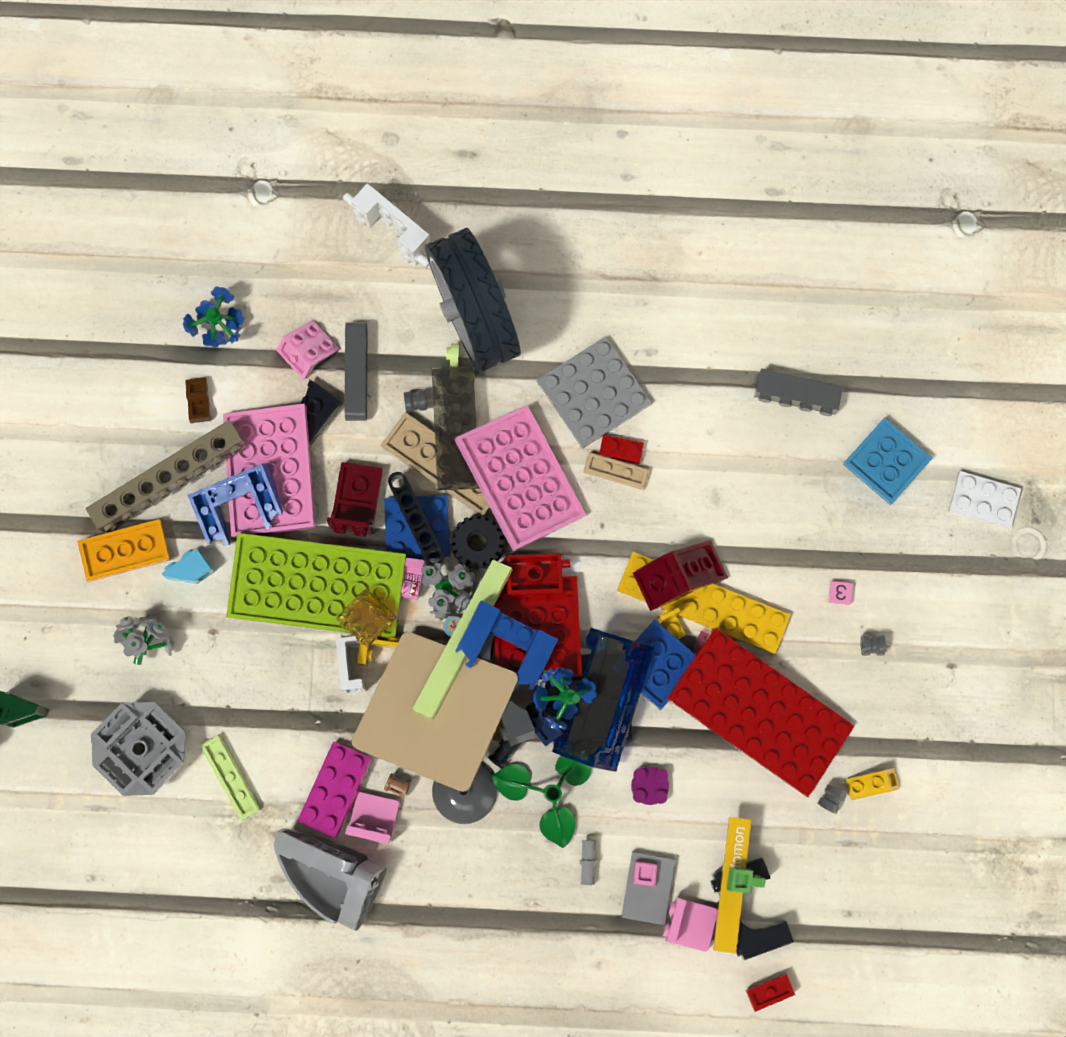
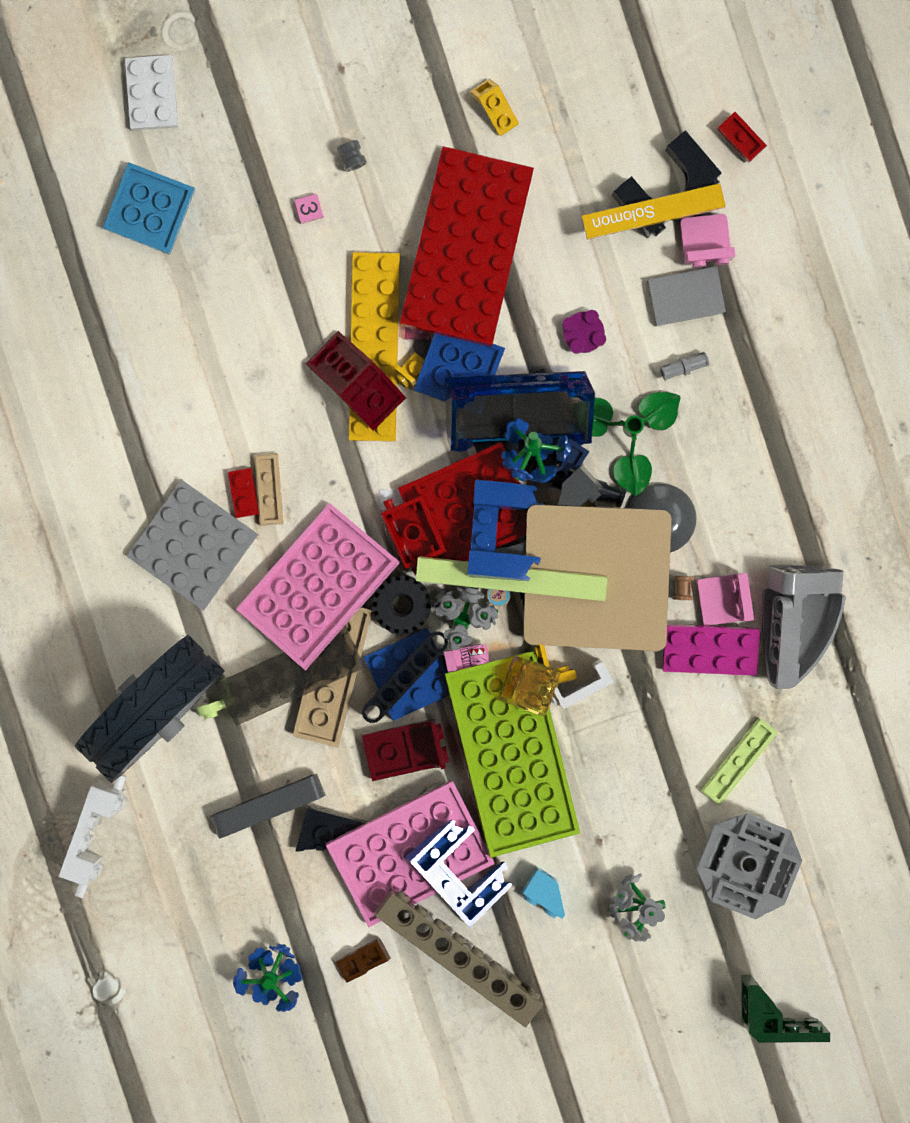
camera: 110 degrees left, 10 degrees up
(123, 550) = (552, 969): light orange plate -> none
(306, 348) = (262, 868): bright pink bracket -> none
(415, 401) = (276, 730): dark grey wheel -> none
(645, 874) = (674, 304): bright pink tile -> none
(742, 879) = (646, 201): bright green plate -> none
(798, 392) = (109, 328): dark grey brick -> none
(831, 799) = (526, 143): dark grey wheel -> none

